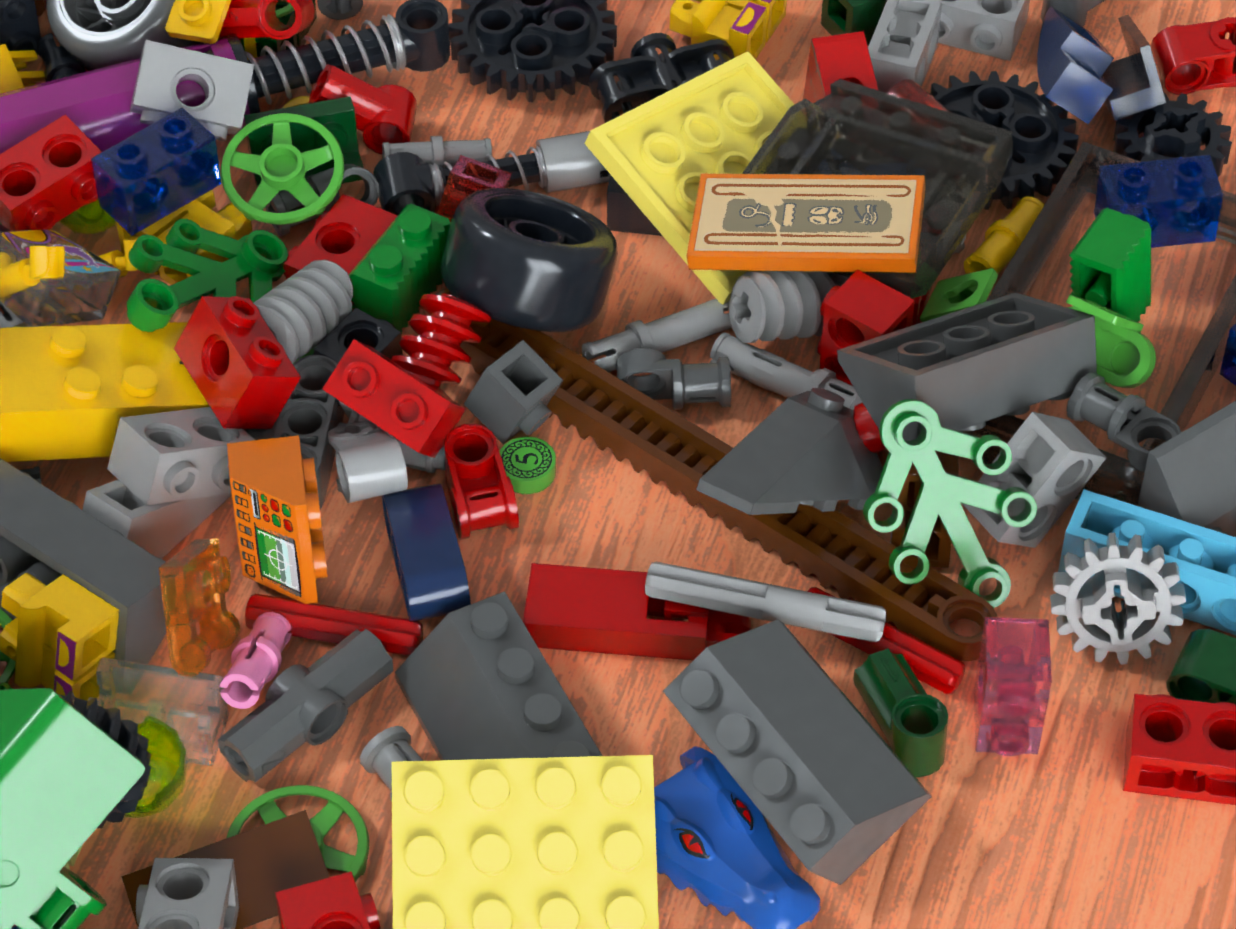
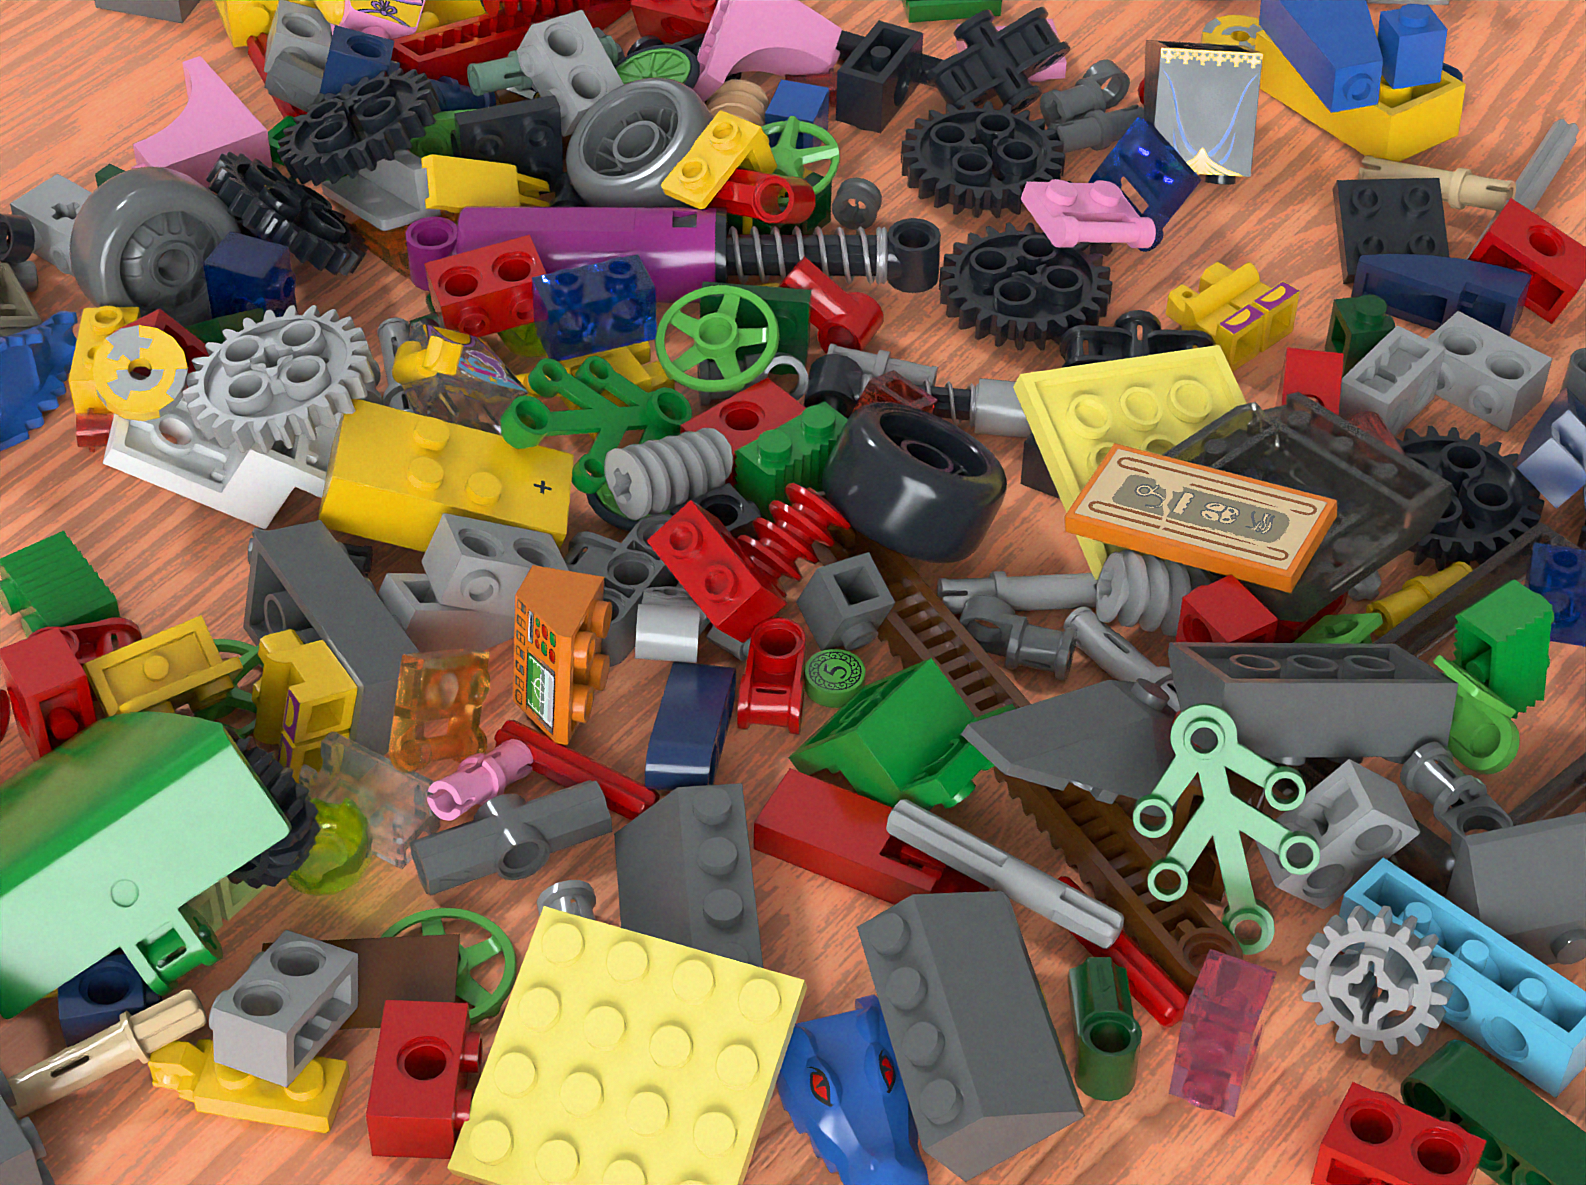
camera: 20 degrees right, 5 degrees down
(222, 79) = (639, 216): light grey brick -> none
(237, 362) = (581, 496): red brick -> none
(624, 506) = (901, 741): none -> green bracket

